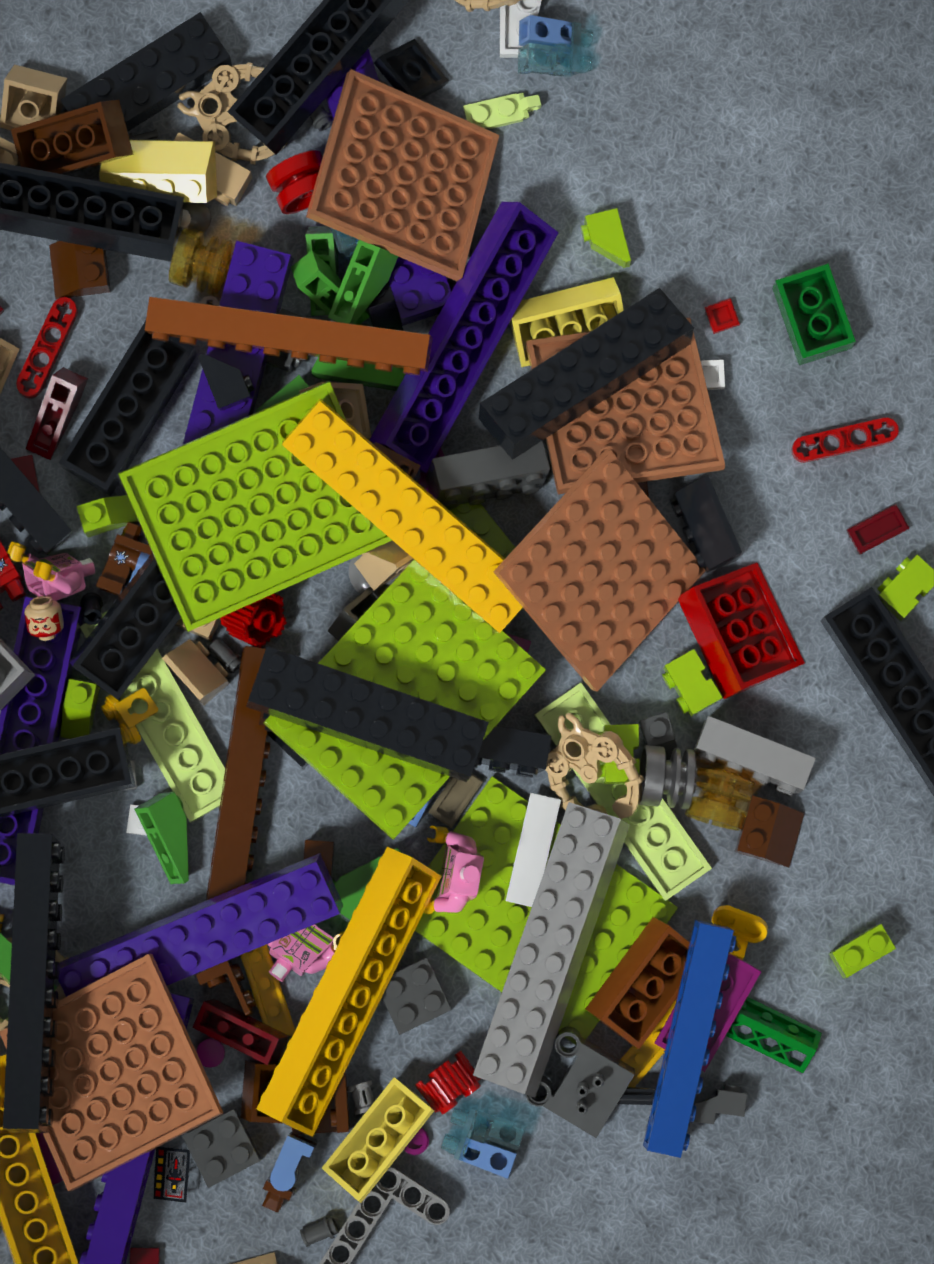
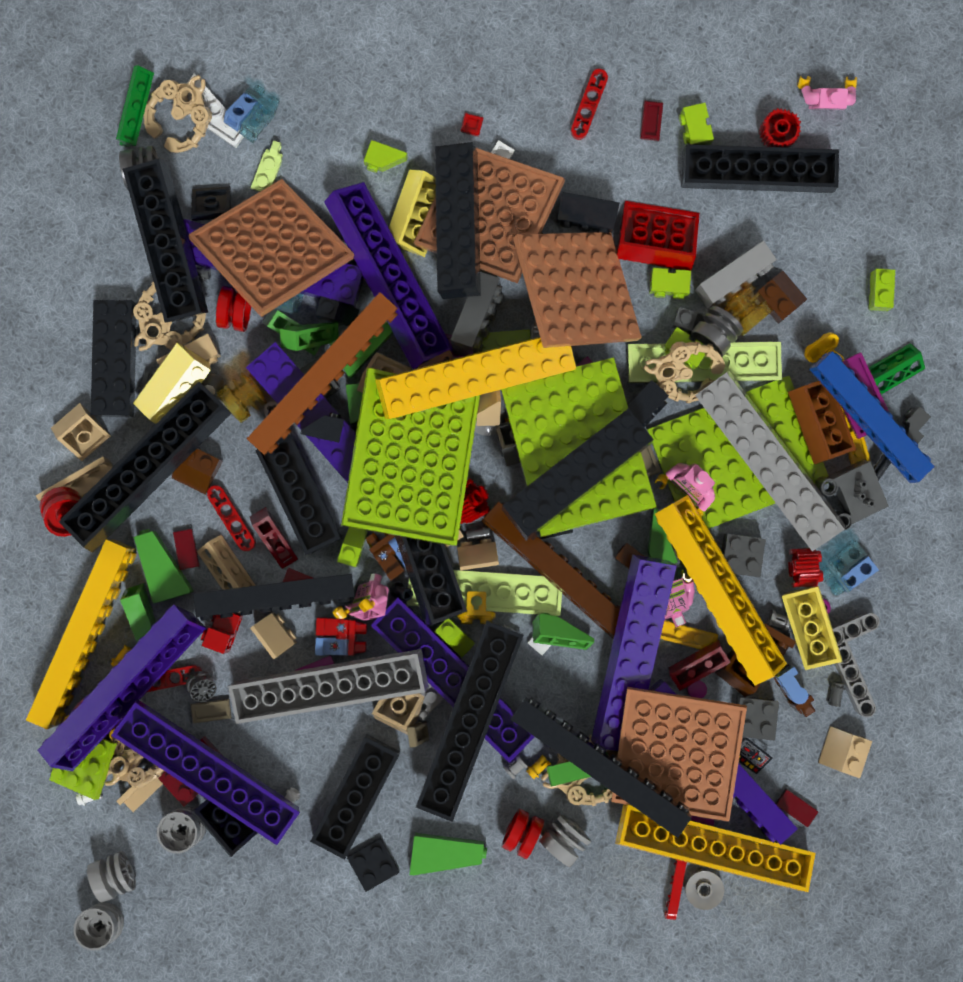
camera: 60 degrees left, 5 degrees up
(44, 618) = (391, 622): tan head -> none
(74, 139) = (121, 422): reddish brown brick -> none
(216, 975) = (663, 647): reddish brown bracket -> none
(362, 282) = (318, 312): bright green slope -> none
(533, 849) = (705, 434): white sticker -> none
(813, 314) = (507, 71): green brick -> none

